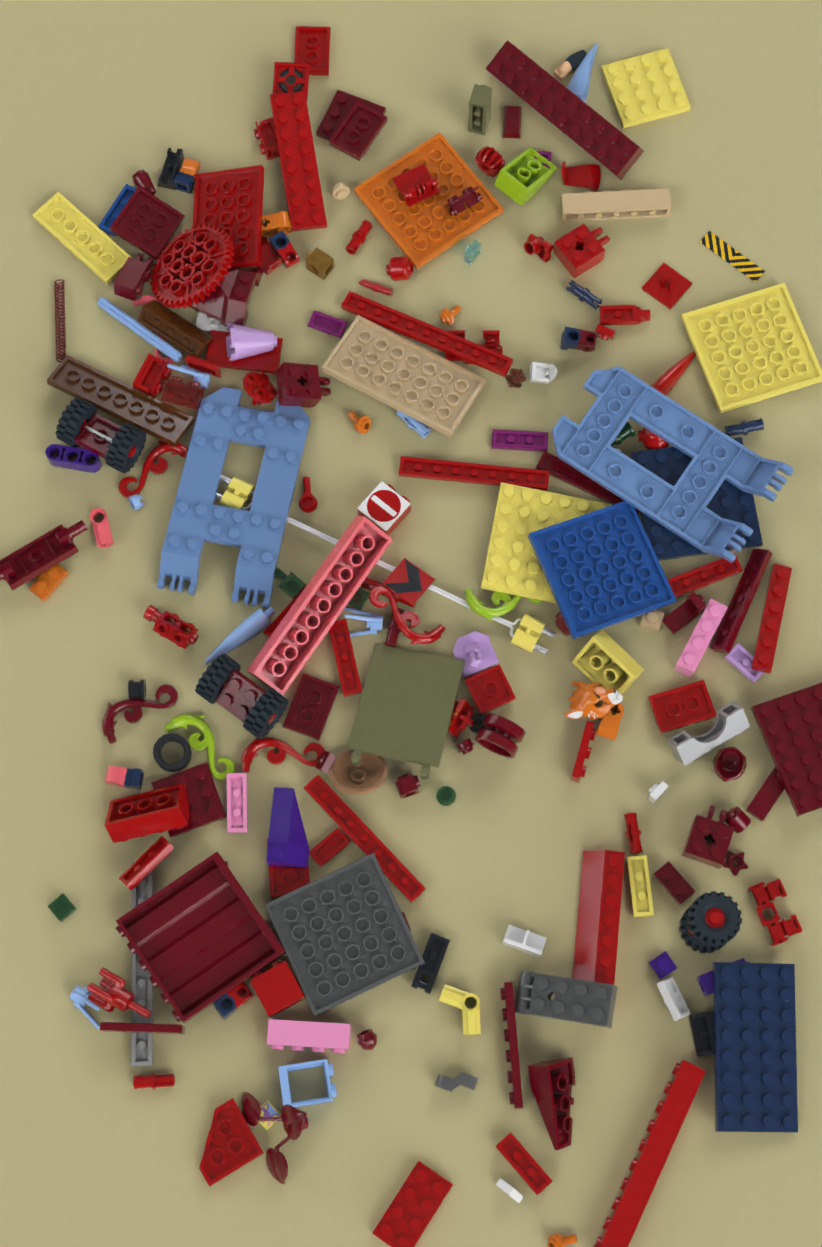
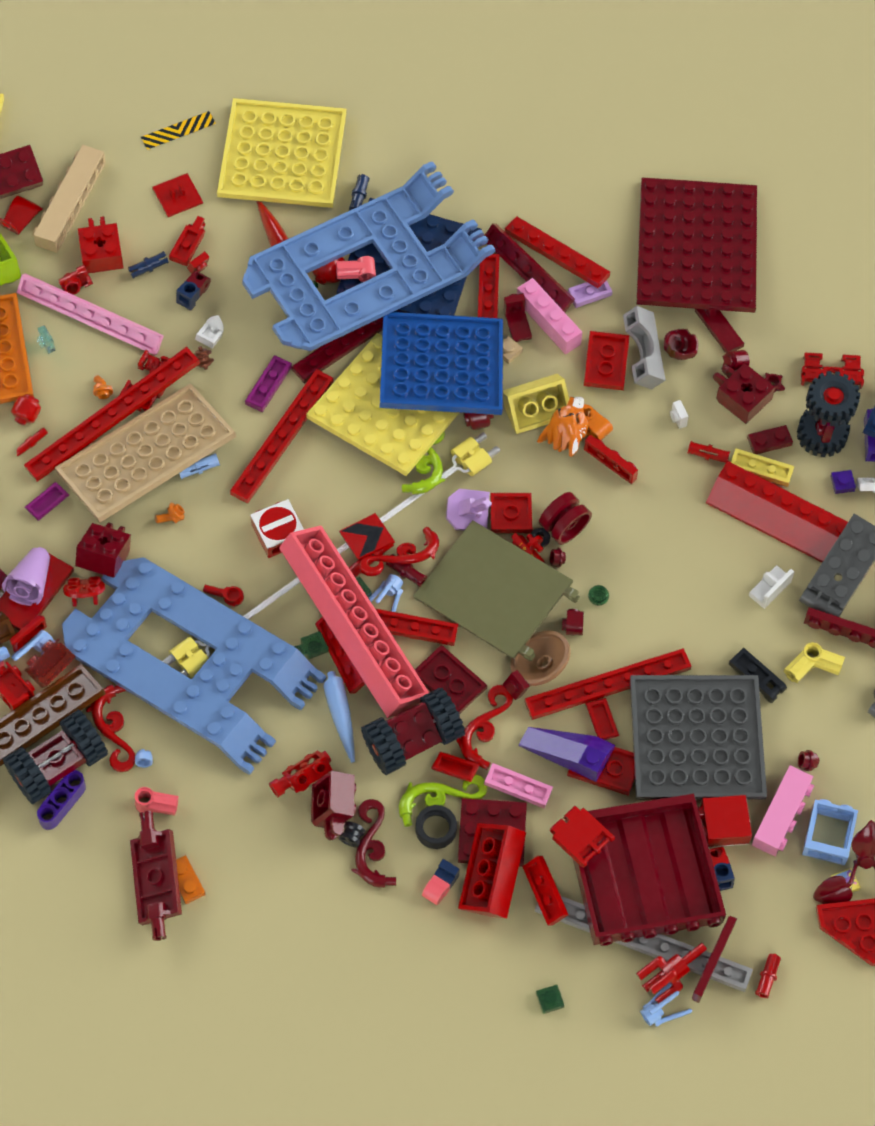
camera: 70 degrees left, 10 degrees down
(151, 662) = (333, 802): none -> dark red hinge
(199, 870) = (580, 835): none -> red plate
(231, 744) = (455, 767): none -> red tile
(513, 273) = (89, 314): none -> bright pink plate
(658, 461) = (361, 269): none -> coral piece

